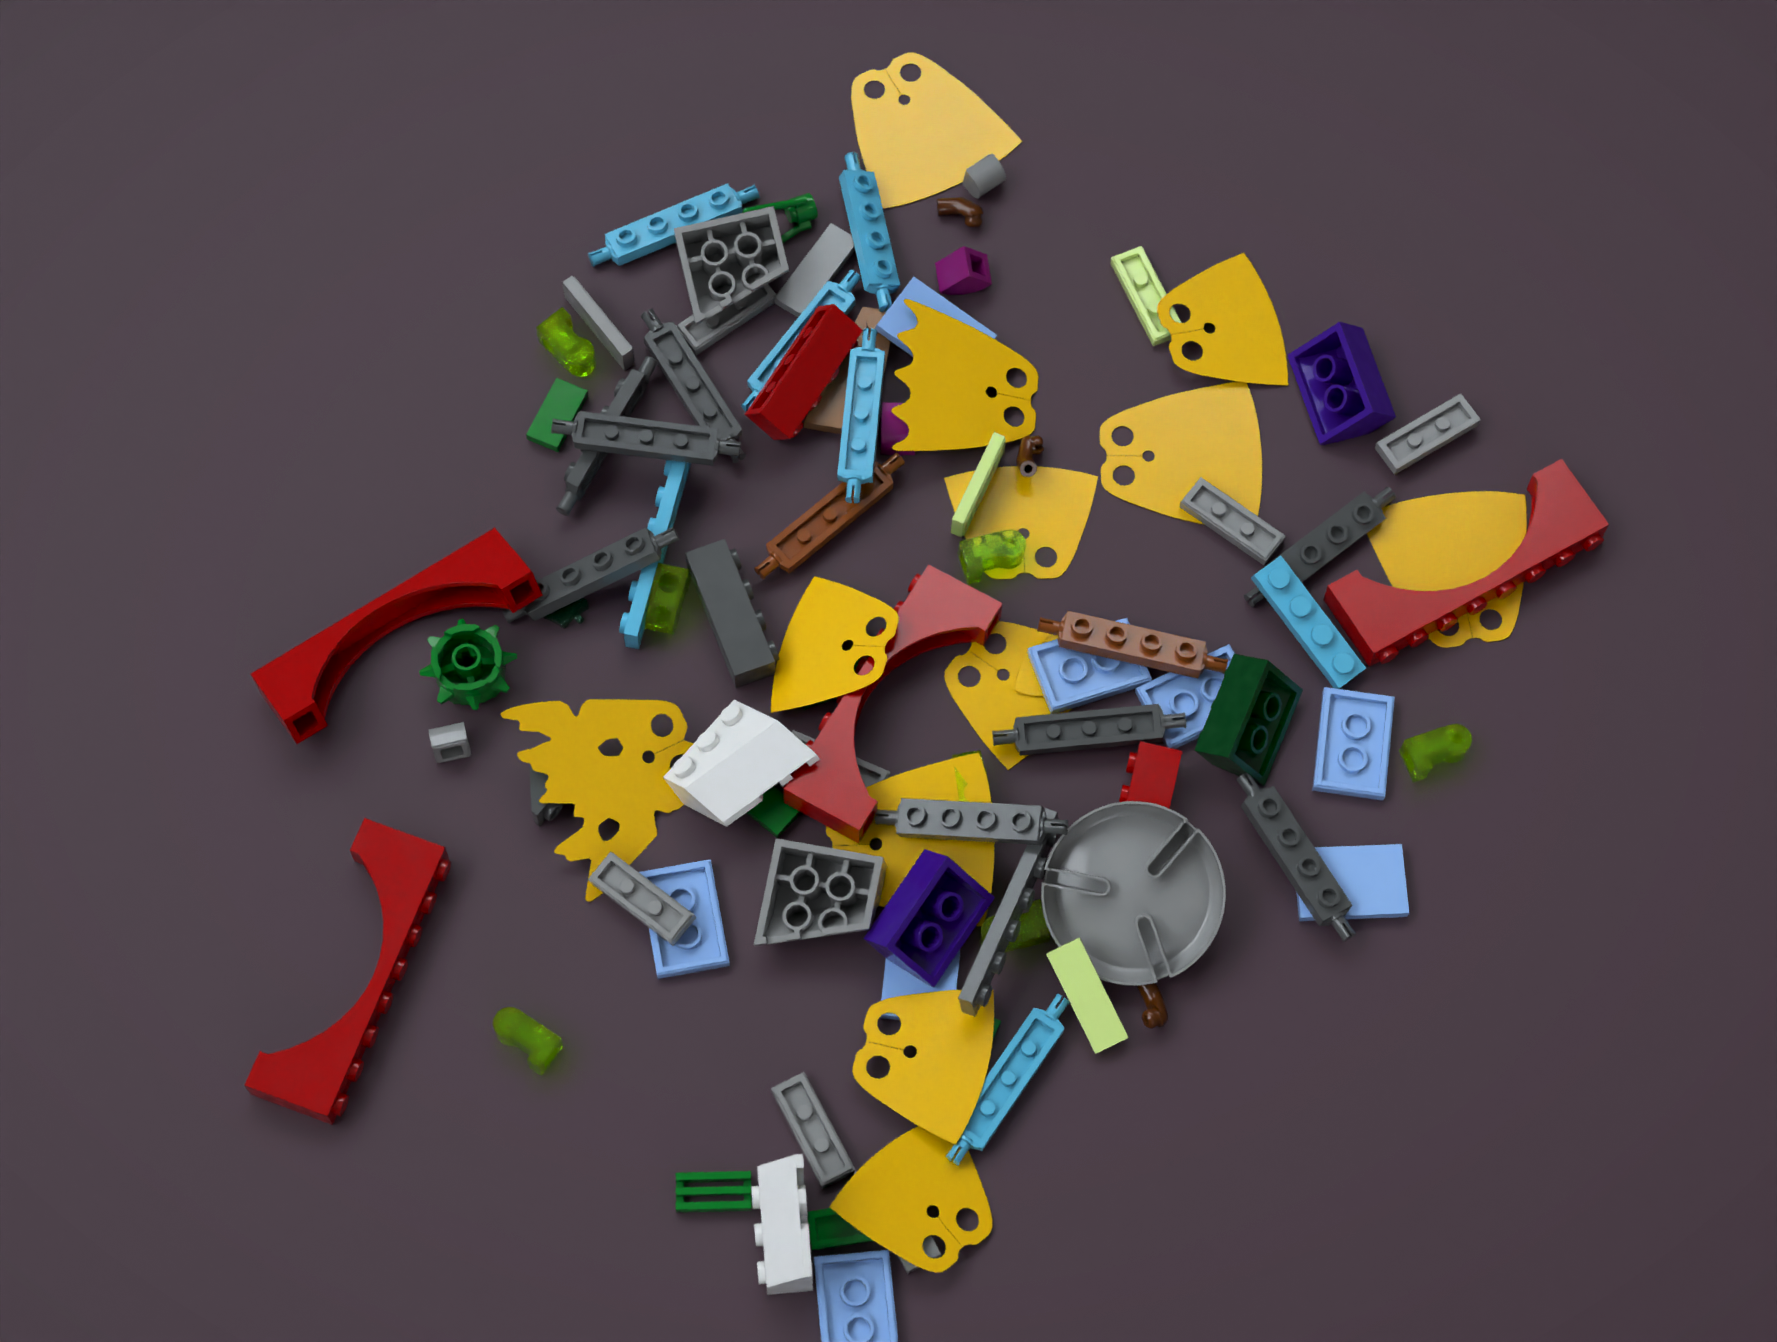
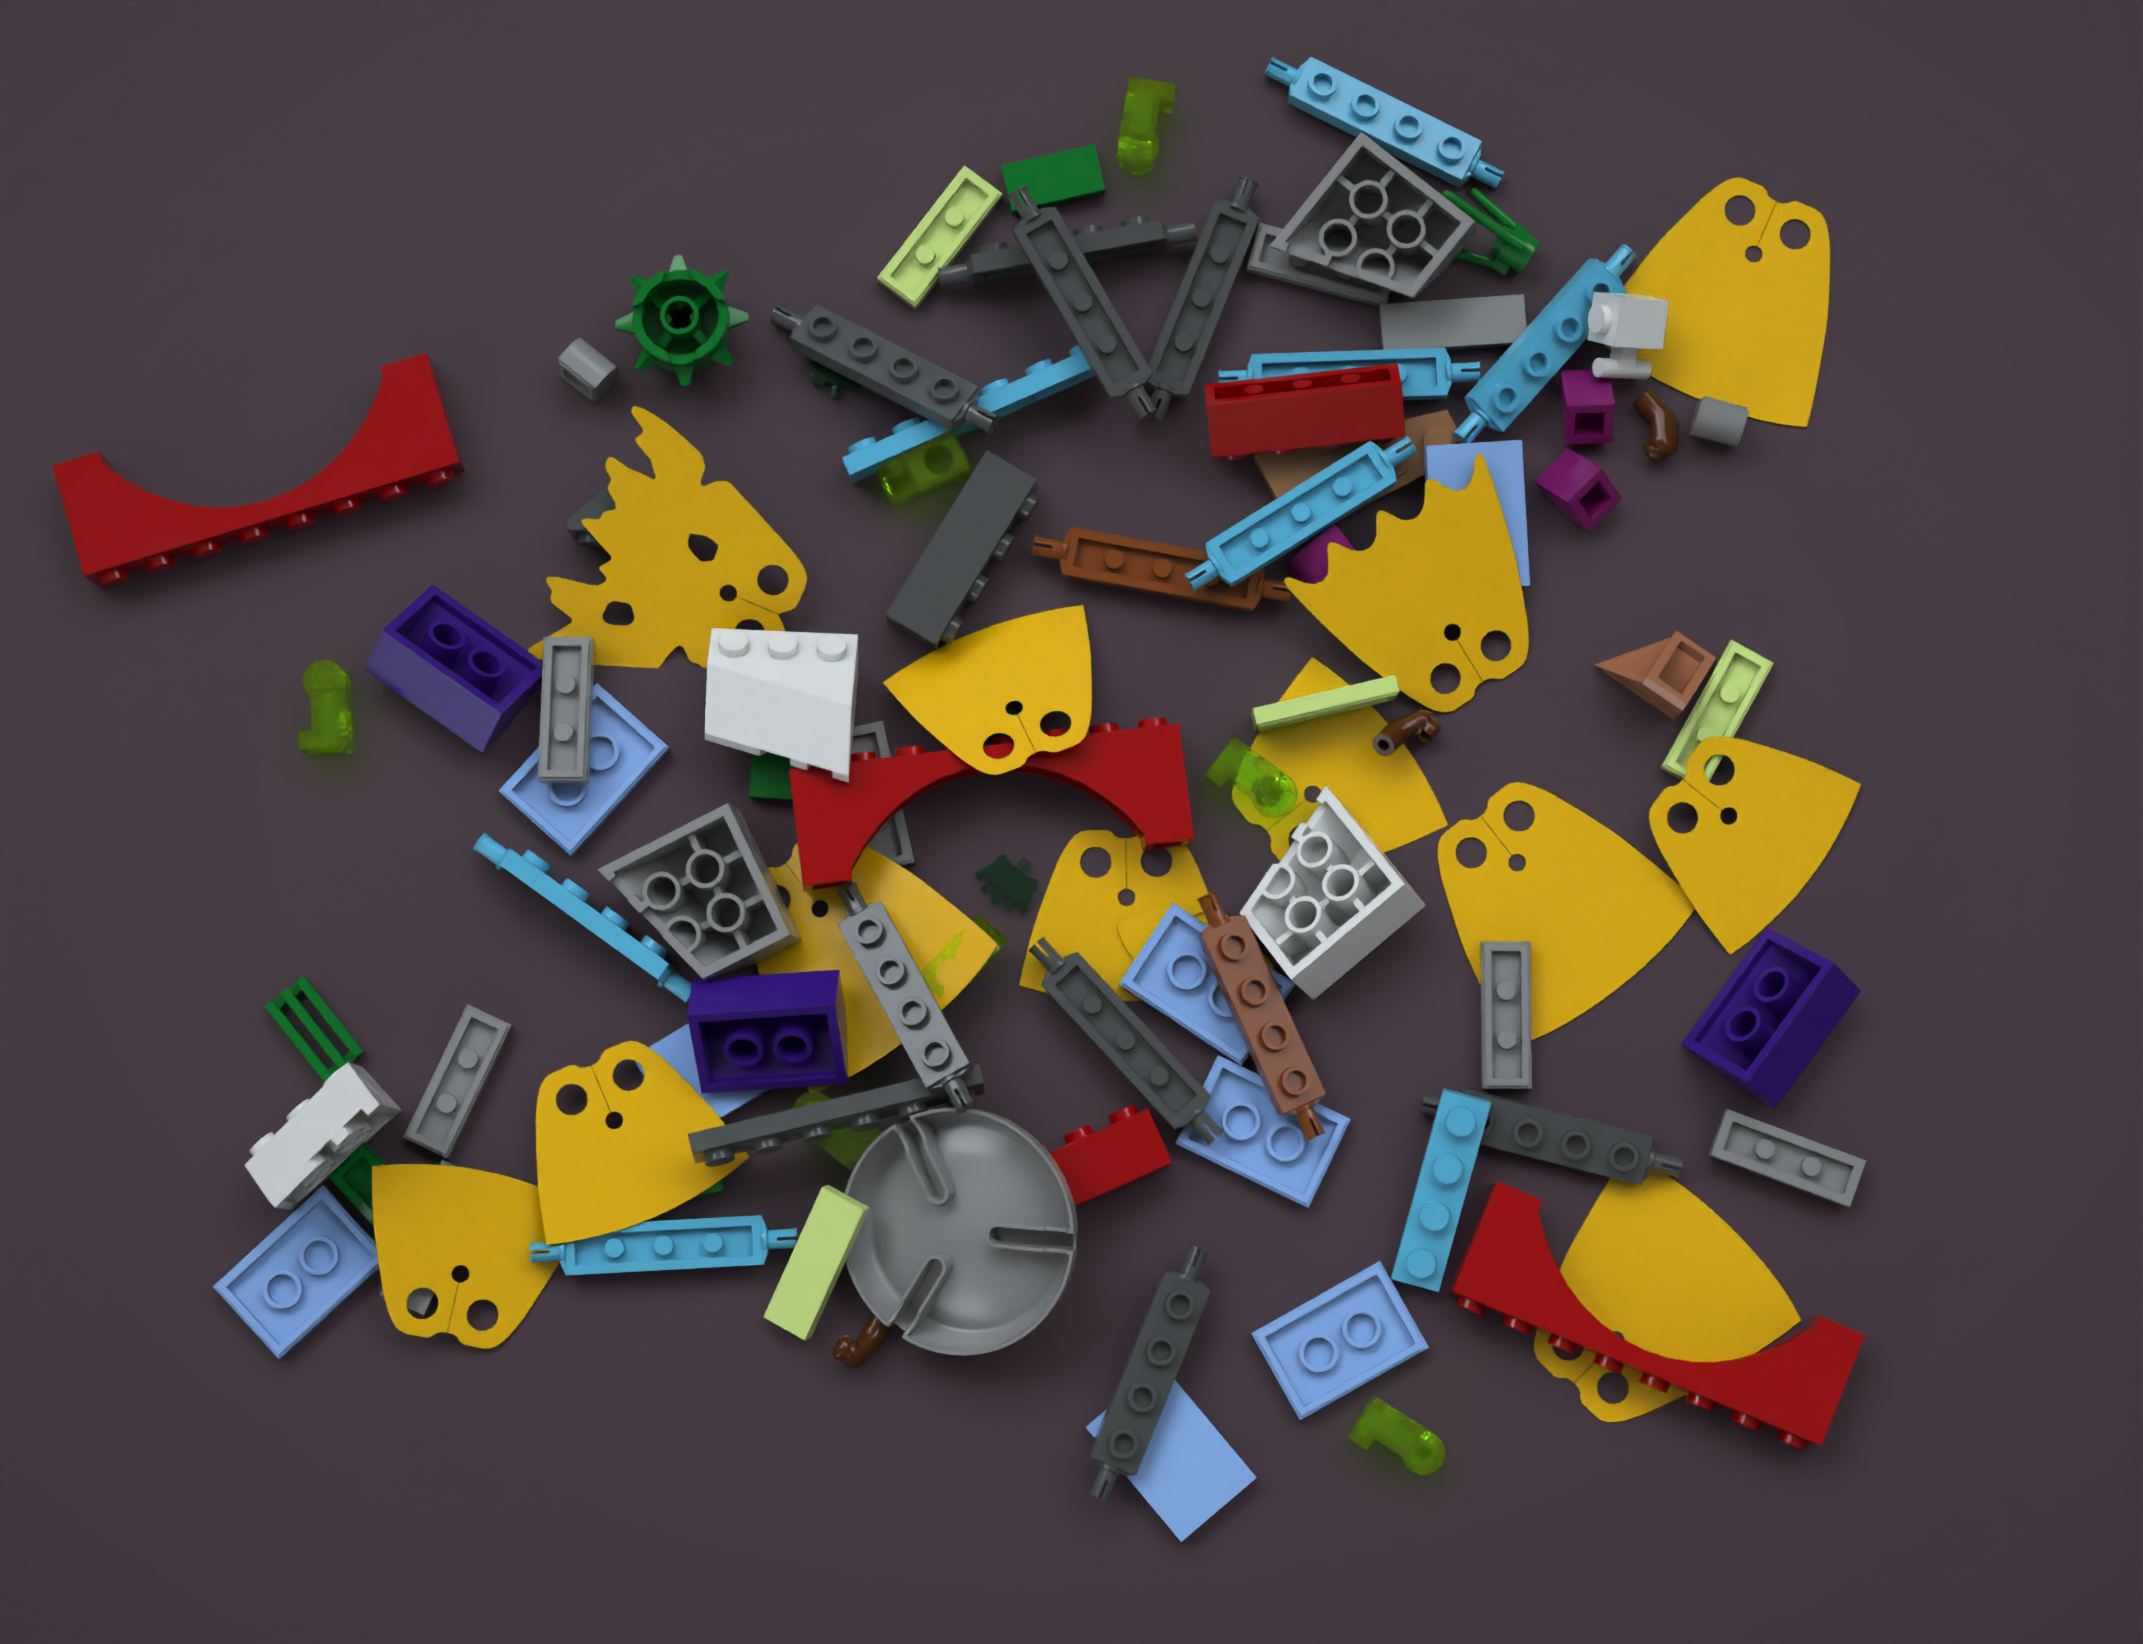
camera: 55 degrees right, 15 degrees up
(476, 575) = (536, 162): red arch -> none
(538, 498) = (939, 237): none -> yellowish green tile
(564, 945) = (455, 667): none -> dark purple slope
(598, 322) = (1195, 137): light grey tile -> none
(760, 980) = (572, 899): none -> medium azure plate
(894, 179) = (1626, 325): none -> white brick
(920, 235) = (1586, 407): none -> magenta brick
(943, 729) = (1010, 881): none -> clear green piece
(1093, 559) = (1329, 899): none -> white wedge
(1102, 305) = (1662, 672): none -> nougat slope
(1249, 718) = (1268, 1207): dark green slope -> none

